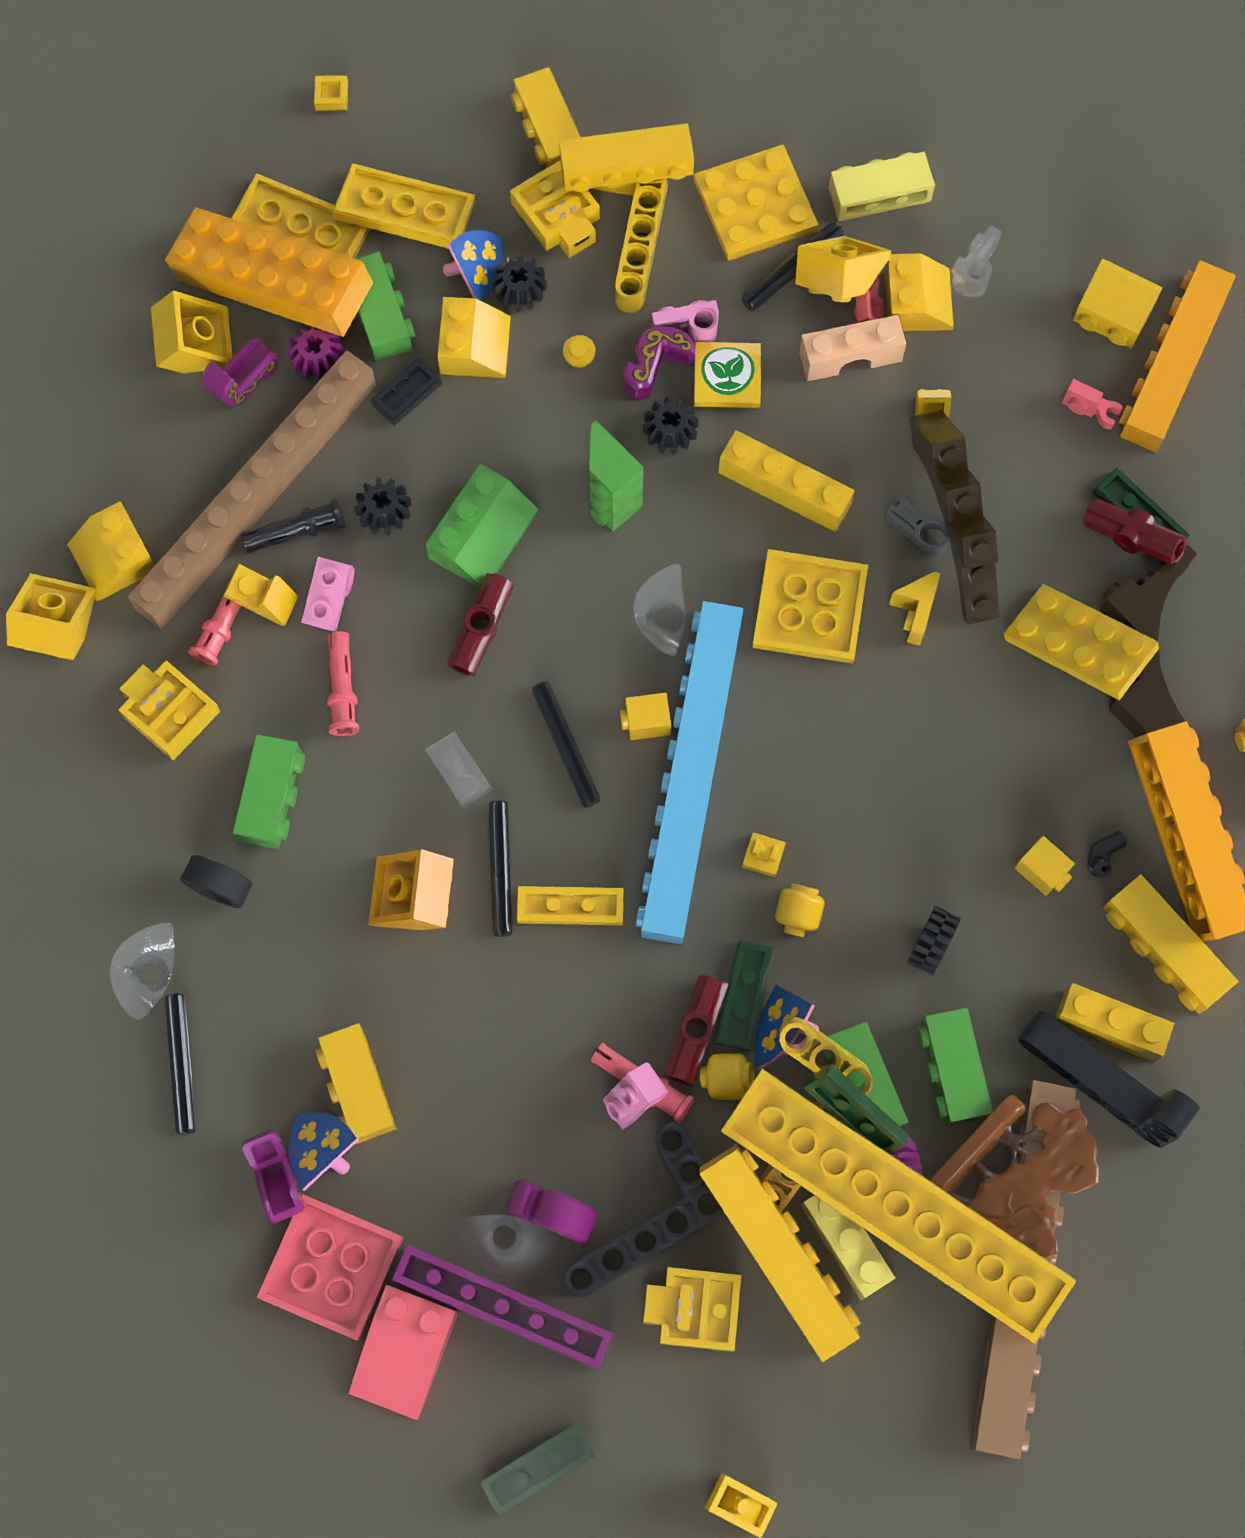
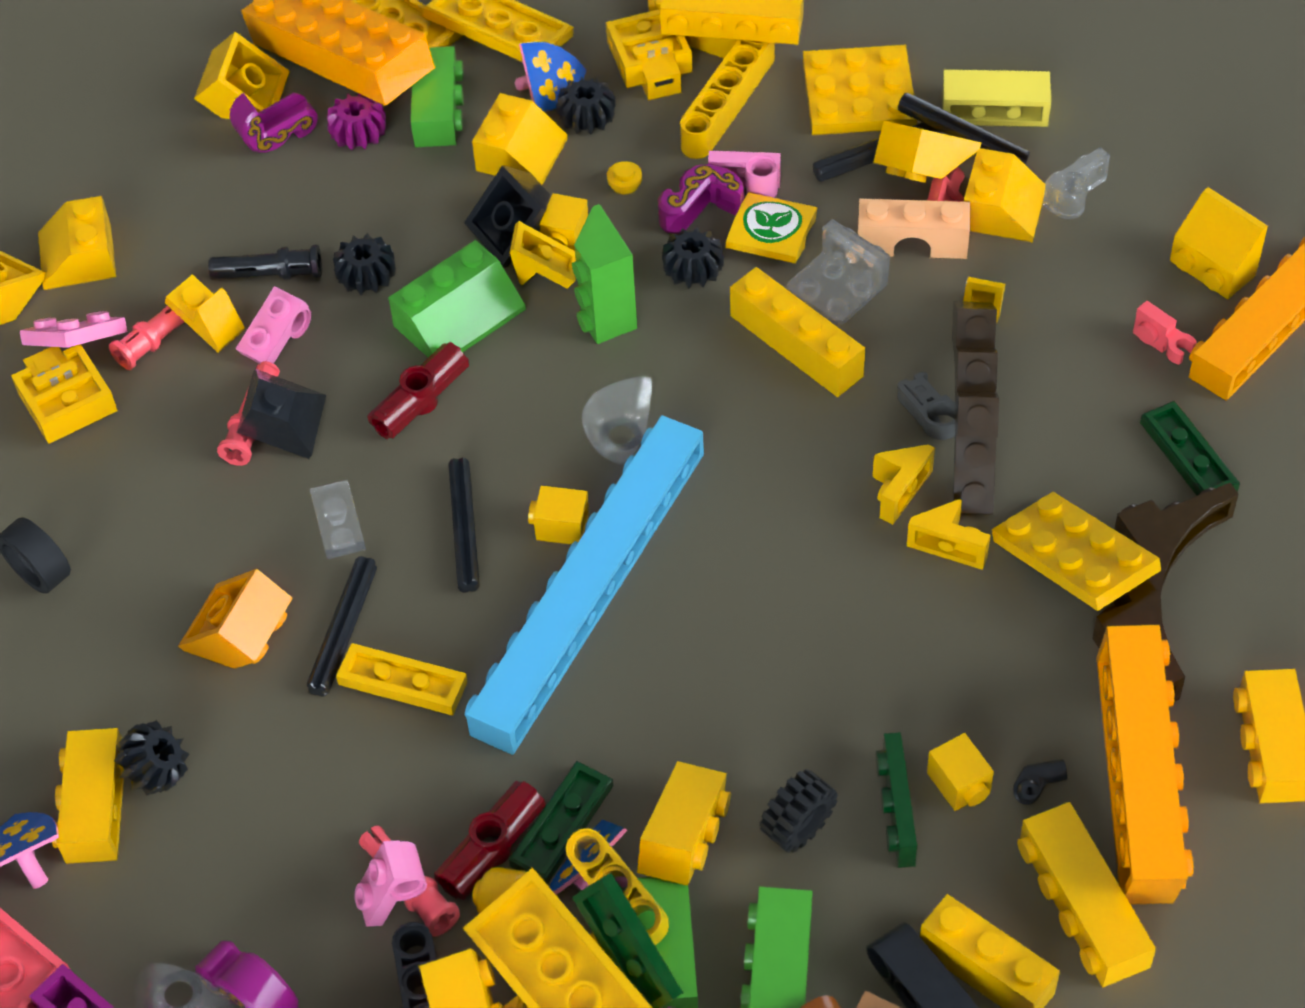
camera: 20 degrees right, 20 degrees down
(151, 653) = (71, 331): none -> bright pink plate
(252, 490) = (240, 220): medium nougat brick -> none
(268, 792) = (128, 491): bright green brick -> none
(370, 680) = (281, 413): none -> black slope
(396, 1039) = (151, 757): none -> black gear
(406, 391) = (432, 173): black plate -> none
(495, 421) = (508, 199): none -> black slope
(542, 460) = (540, 254): none -> yellow slope
(545, 419) = (564, 219): none -> yellow brick
(763, 854) = (639, 684): yellow tile -> none
(799, 909) = (656, 745): yellow head -> none
(804, 413) = (842, 275): none -> clear bracket
(810, 606) = (781, 454): yellow plate -> none
(850, 978) = (683, 823): none -> yellow brick
(864, 231) = (956, 126): none -> black axle
(964, 651) = (941, 535): none -> yellow slope
(1003, 904) = (897, 800): none -> dark green plate
(1135, 531) = (1172, 457): dark red piece -> none

